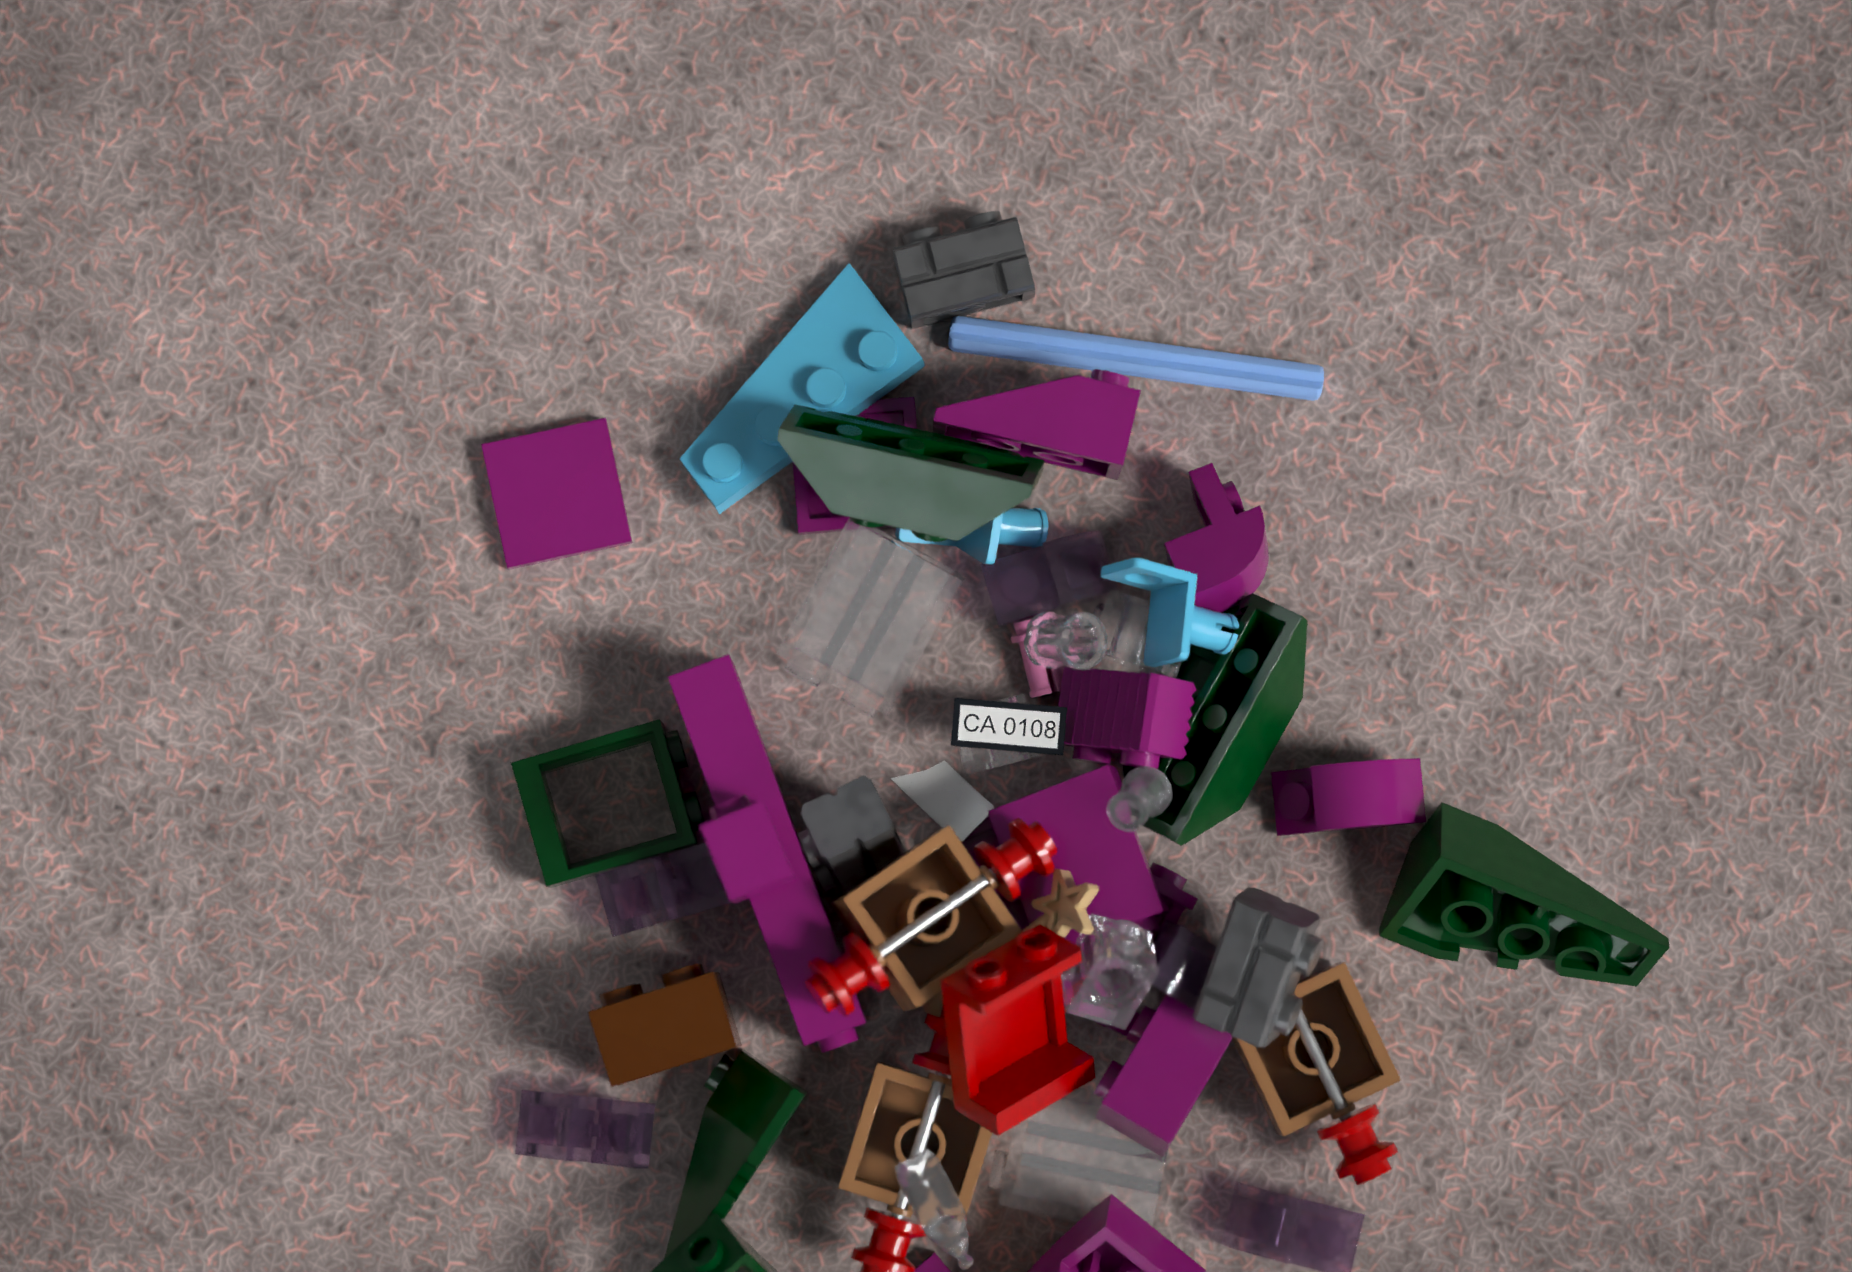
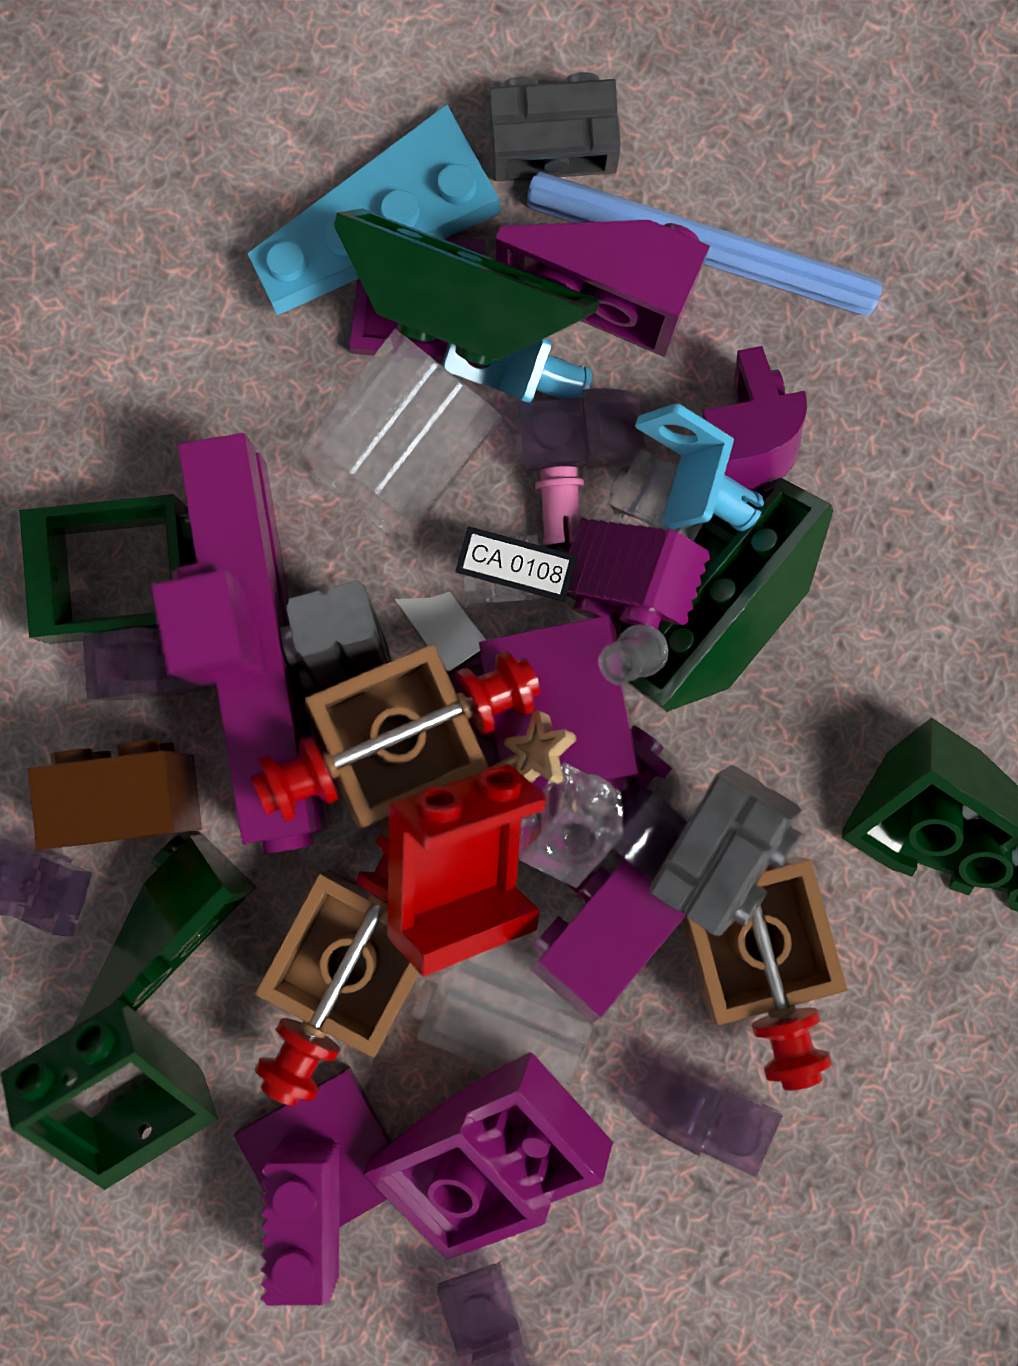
camera: 10 degrees right, 0 degrees up
(556, 493) = (128, 271): magenta tile -> none
(935, 1204) = (348, 1032): clear piece -> none
(1066, 640) = (592, 489): clear bush -> none
(1348, 796) = (837, 694): magenta brick -> none

